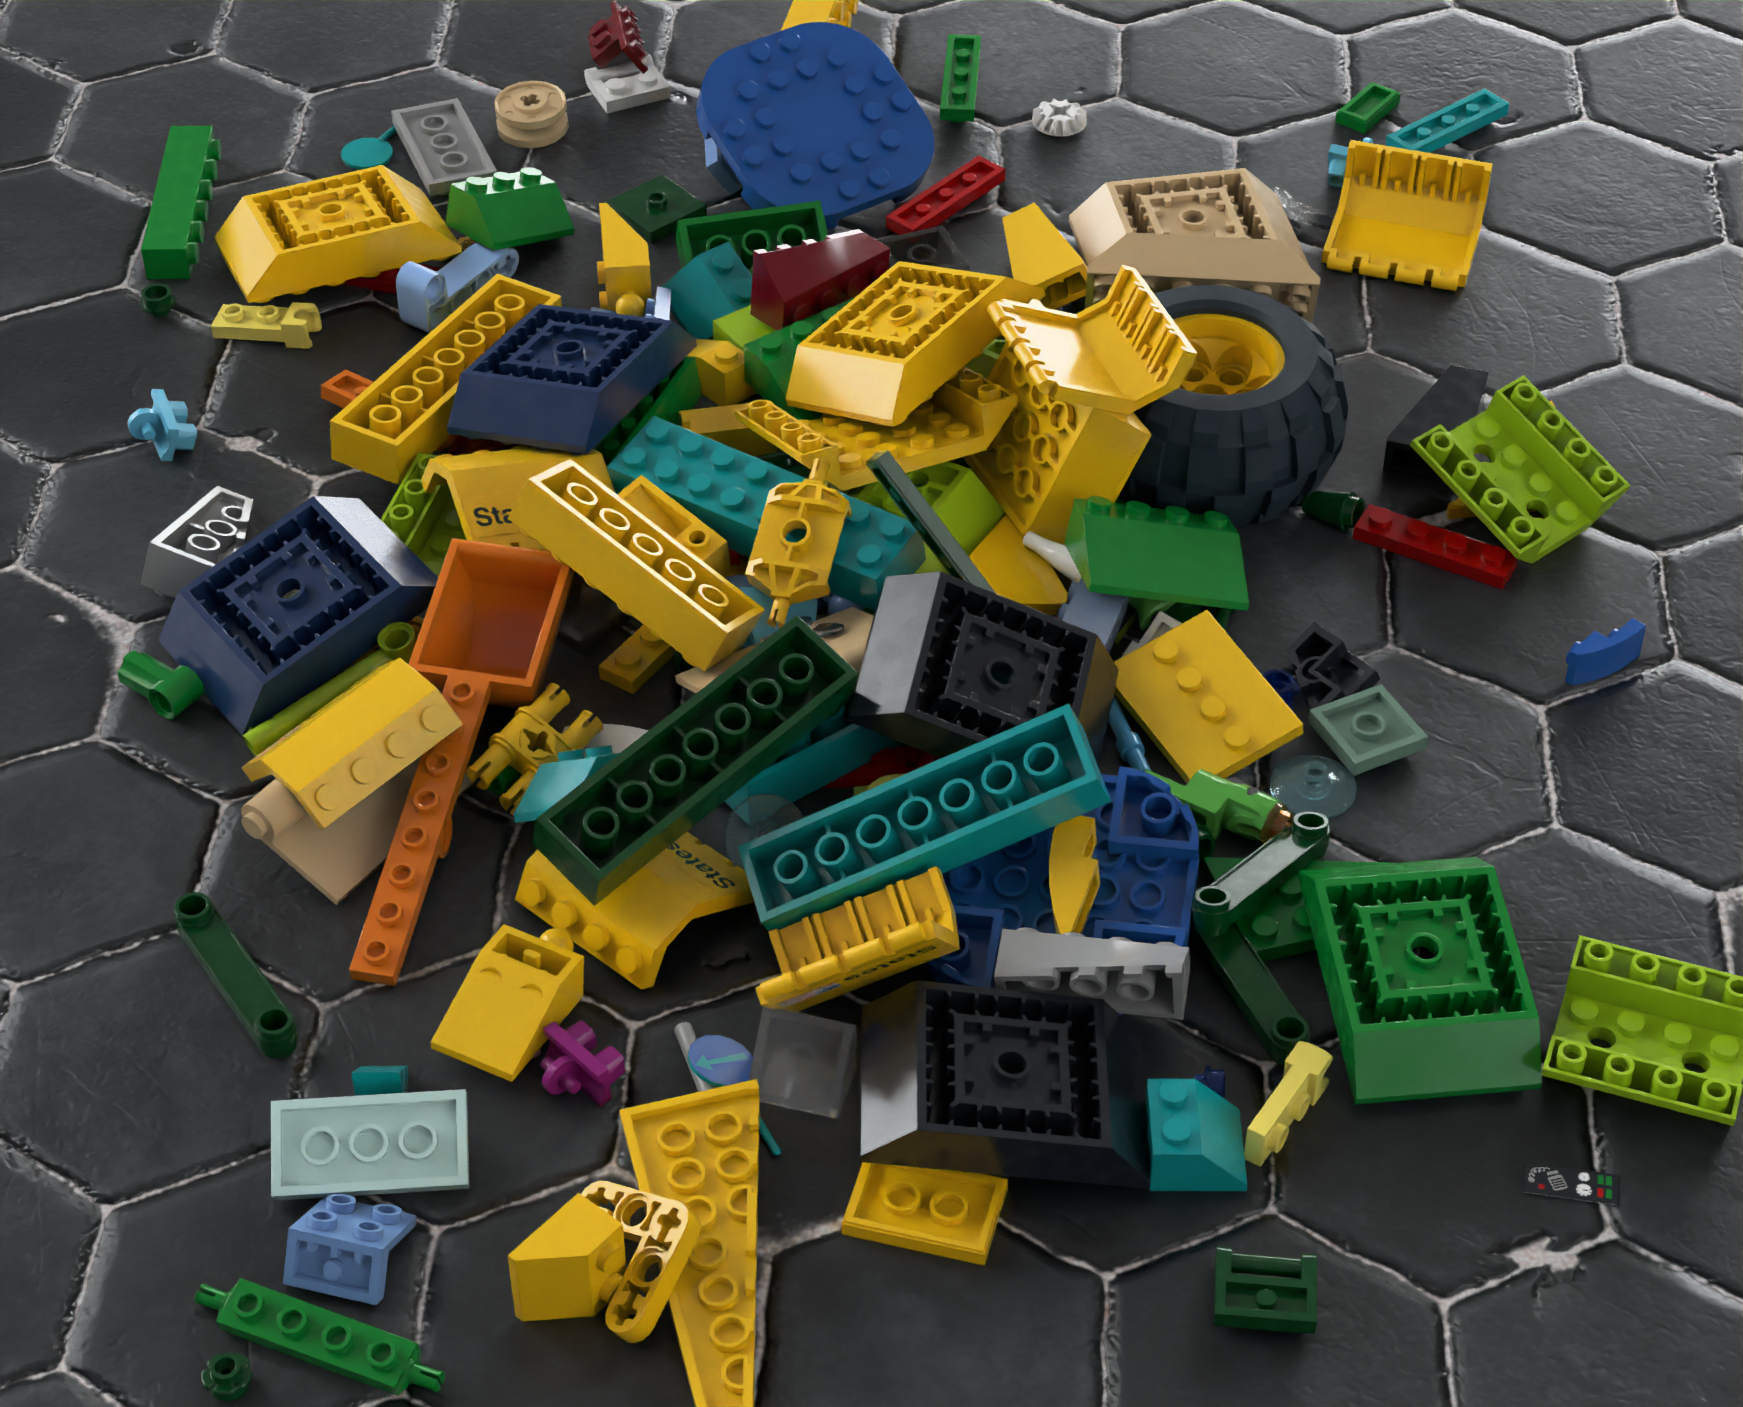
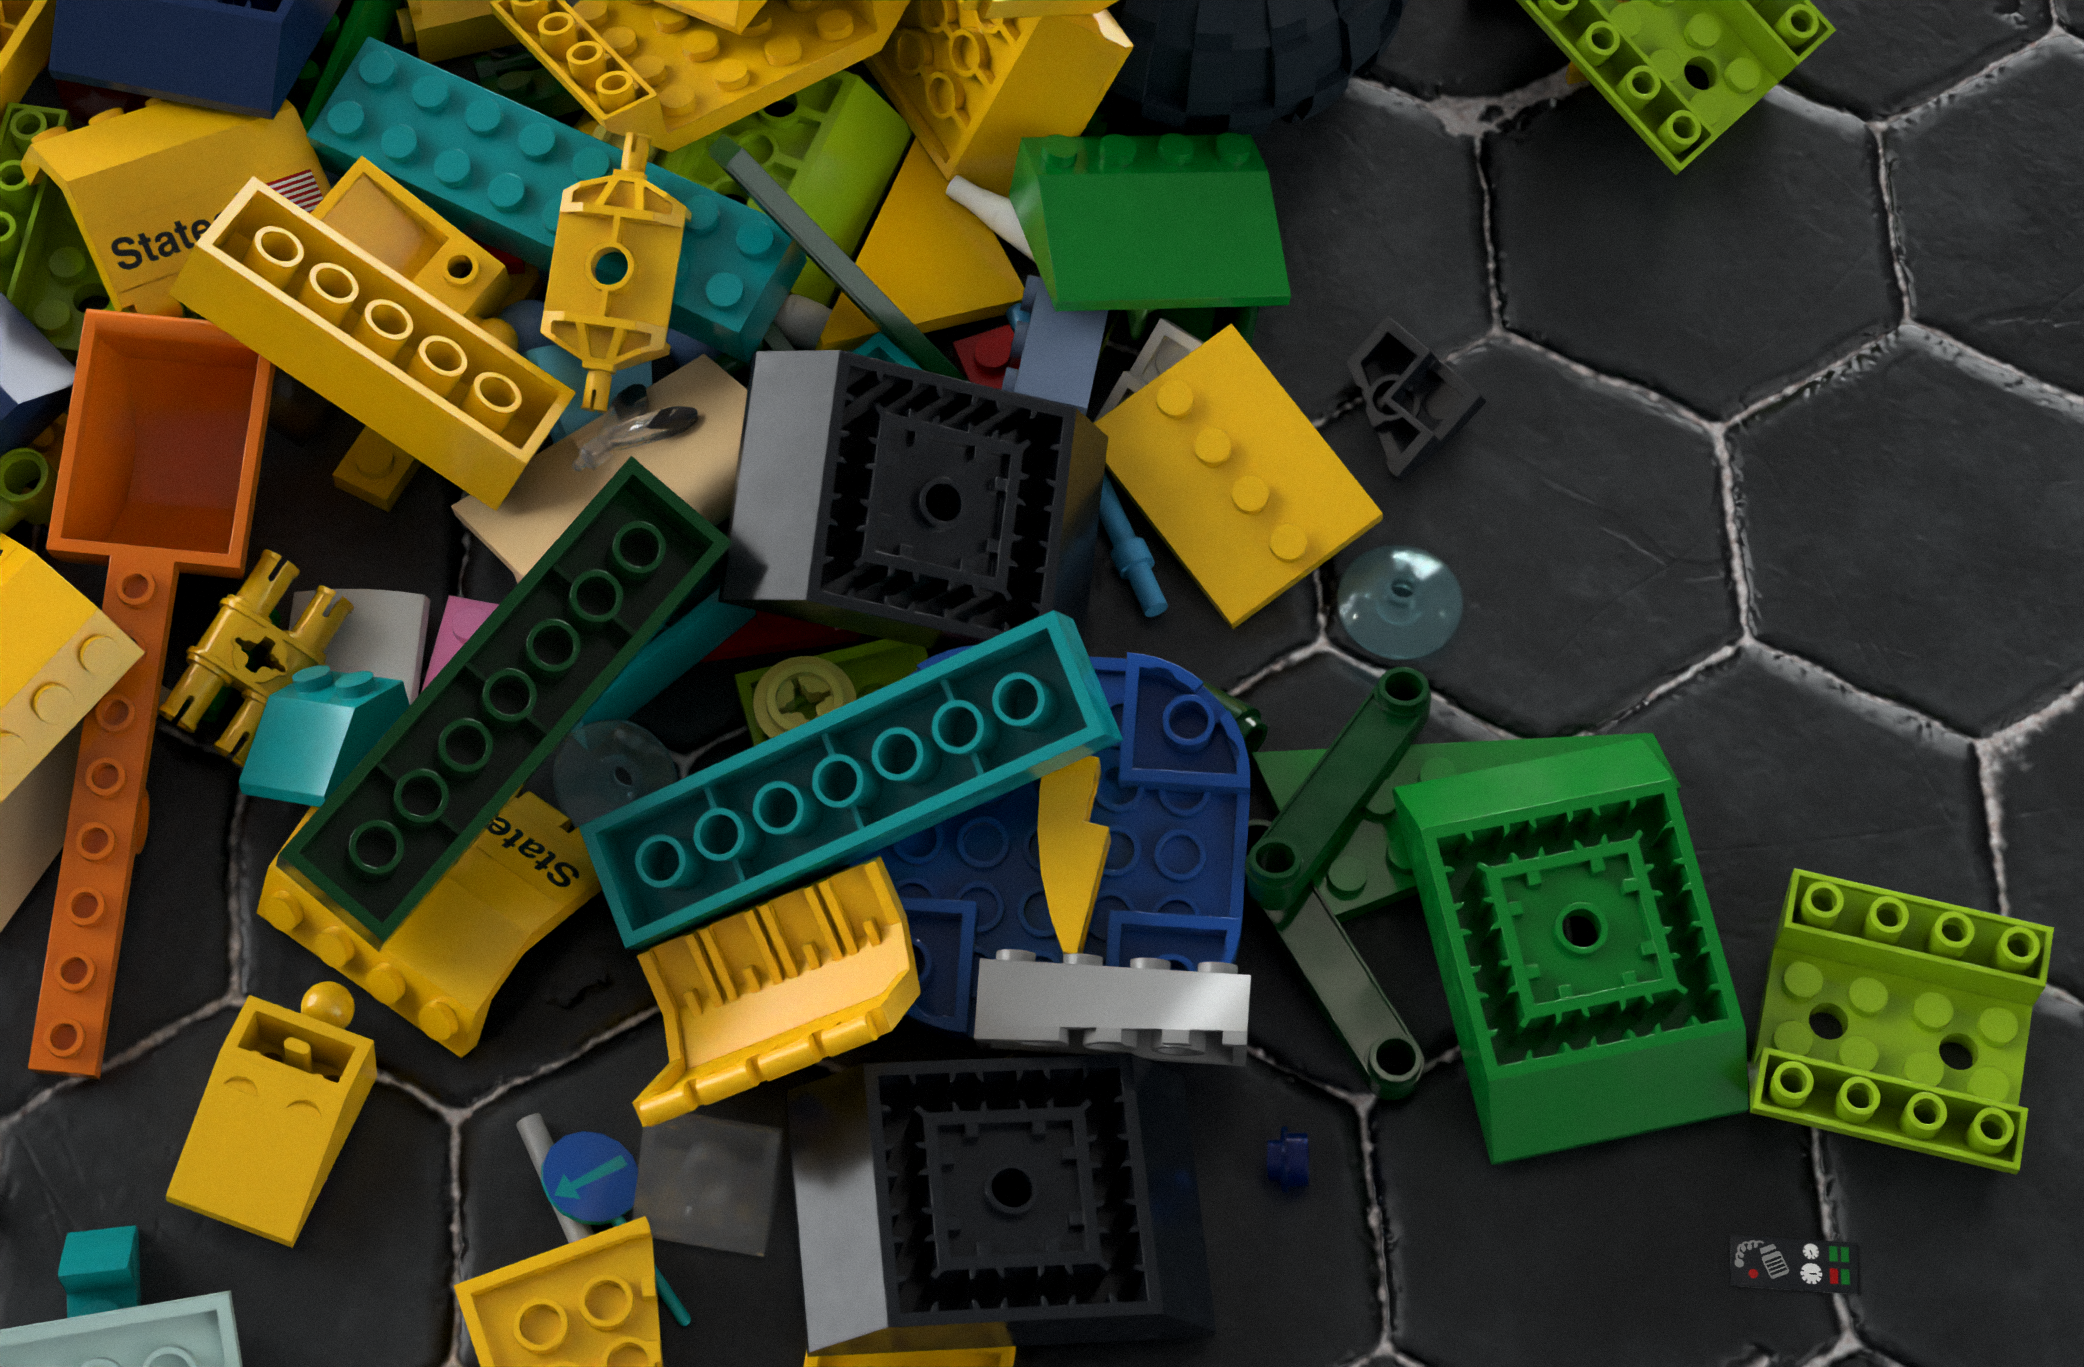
camera: 10 degrees left, 20 degrees up
(573, 1067) = (366, 1184): magenta hips -> none
(1193, 1138) = (1272, 1252): teal slope -> none
(1231, 805) = (1268, 654): bright green plate -> none
(1283, 684) = (1346, 421): clear blue plate -> none
(1300, 1087) = (1416, 1137): light yellow plate -> none
(1335, 507) = (1405, 86): dark green cone -> none
(1367, 729) = (1473, 499): sand green plate -> none
(1435, 546) = (1550, 142): red plate -> none
(1604, 655) = (1803, 334): blue slope -> none

